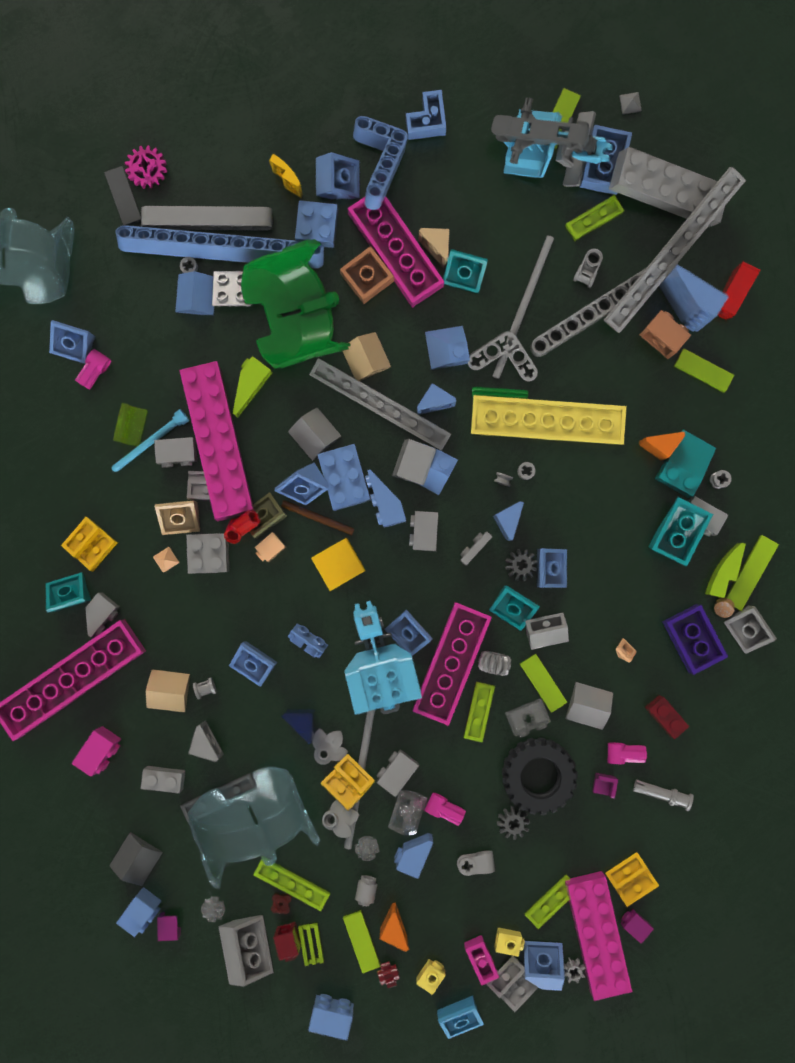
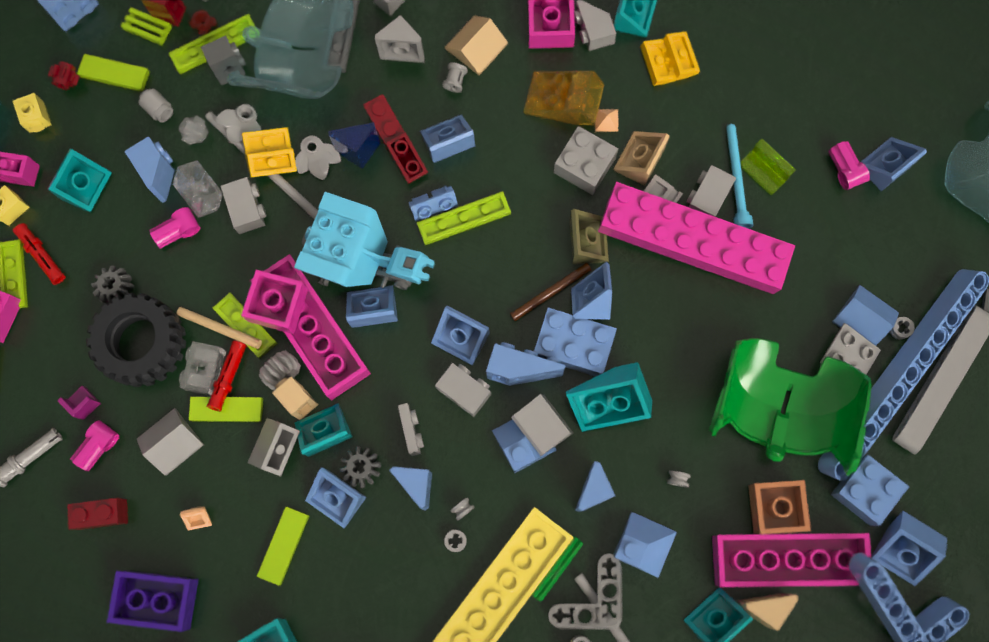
camera: 130 degrees right, 10 degrees down
(168, 600) = (565, 96): none -> clear yellow slope
(240, 526) = (591, 204): red piece -> none
(250, 382) = (737, 312): lime slope -> none
(269, 547) = (551, 224): light nougat brick -> none
(279, 698) = (395, 139): none -> dark red slope
(288, 176) = (945, 490): yellow slope -> none
(301, 862) = (223, 58): none -> dark grey brick
(304, 612) = (464, 218): none -> lime tile
(314, 433) = (641, 343): light grey slope -> none
(338, 564) = (489, 281): yellow slope -> none
(366, 356) = (689, 450): tan slope -> none
(366, 427) = (611, 398): none -> teal slope
(380, 404) = (622, 435): light grey plate -> none
(390, 351) = (678, 478): none -> light grey bush
(390, 557) = (460, 335): none -> medium blue slope
(393, 930) = (97, 104): orange slope -> none
(453, 694) = (274, 301): none -> dark pink brick
(456, 901) = (79, 181): none -> teal slope
(479, 862) = (99, 226): light grey piece -> none
(492, 727) = (218, 327): none -> tan bar
(506, 639) = (294, 398): none -> tan brick
(519, 915) = (23, 233): none -> red pin
(521, 697) = (224, 381): none -> red pin
(604, 581) = (283, 546): none -> lime tile

